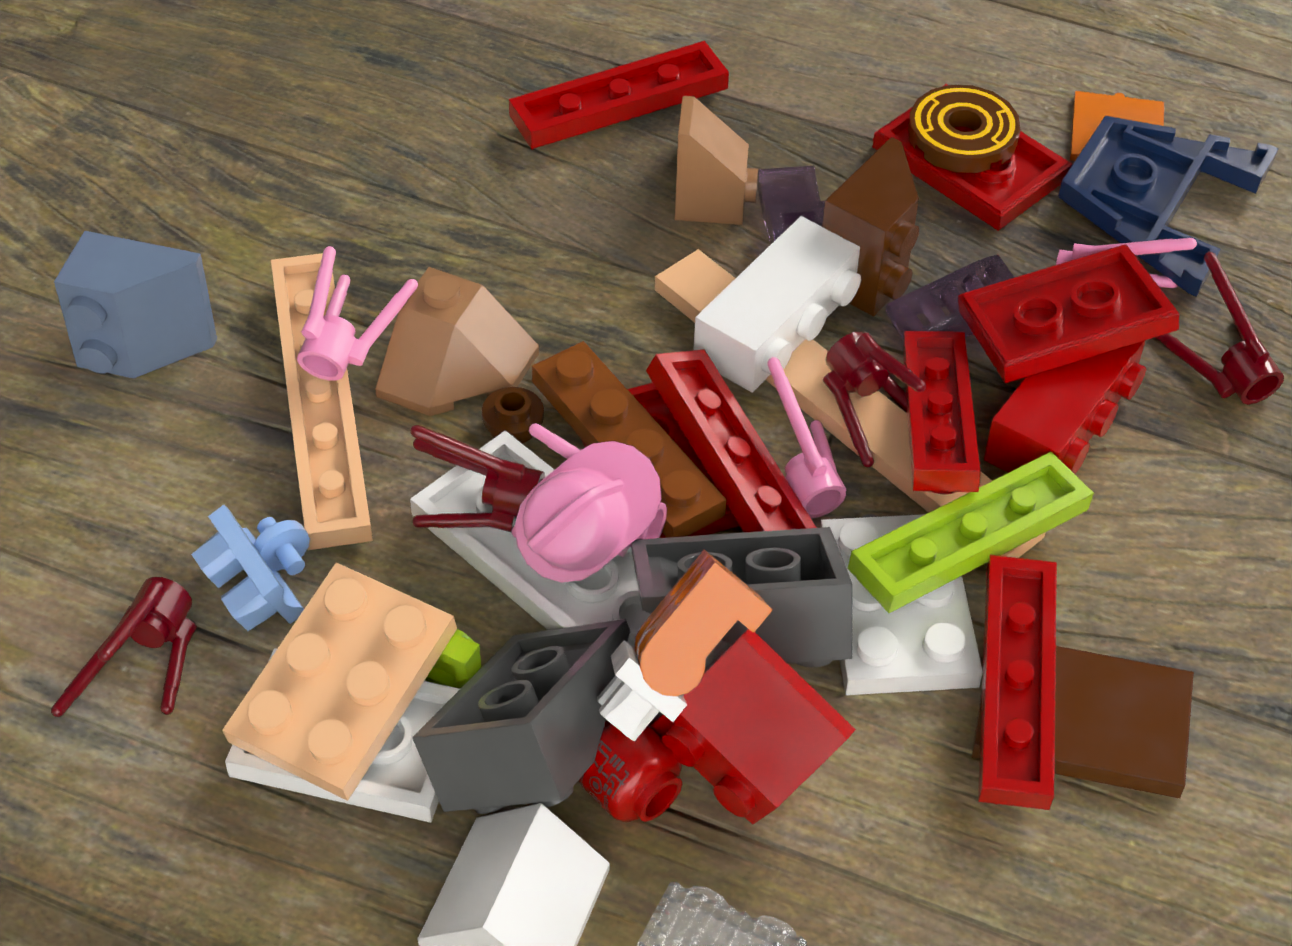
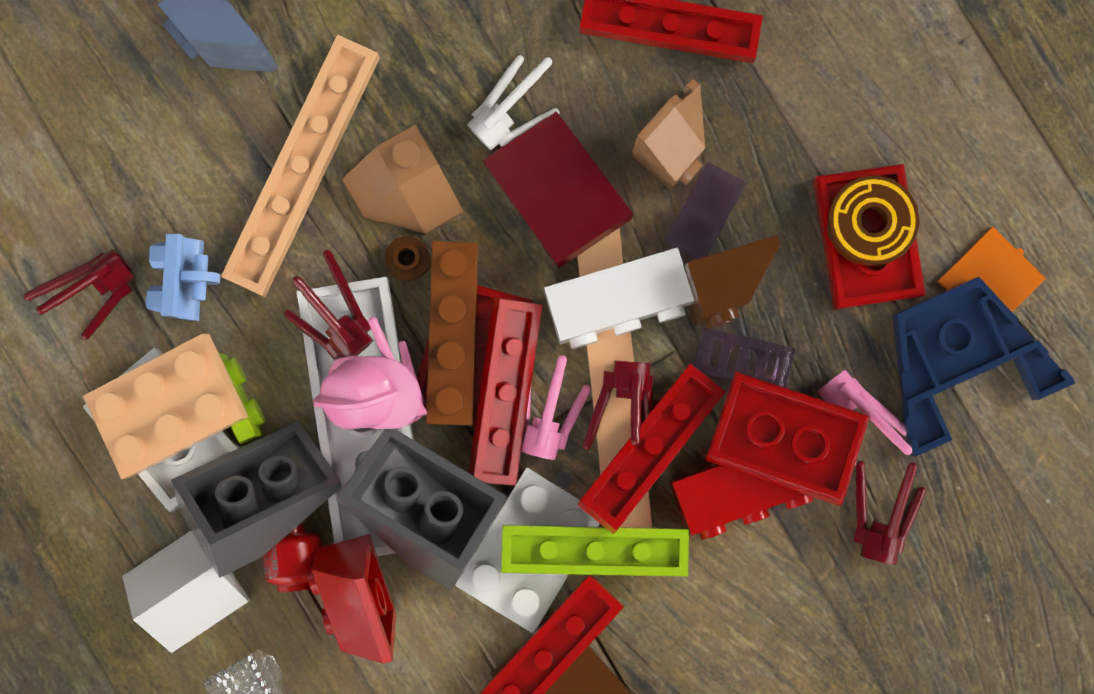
camera: 35 degrees right, 35 degrees up
(331, 339) = (312, 148): bright pink plant -> none
(507, 253) = (492, 121): none -> white plant
(627, 265) = (558, 189): none -> dark red tile
(675, 643) = (330, 552): orange hips -> none

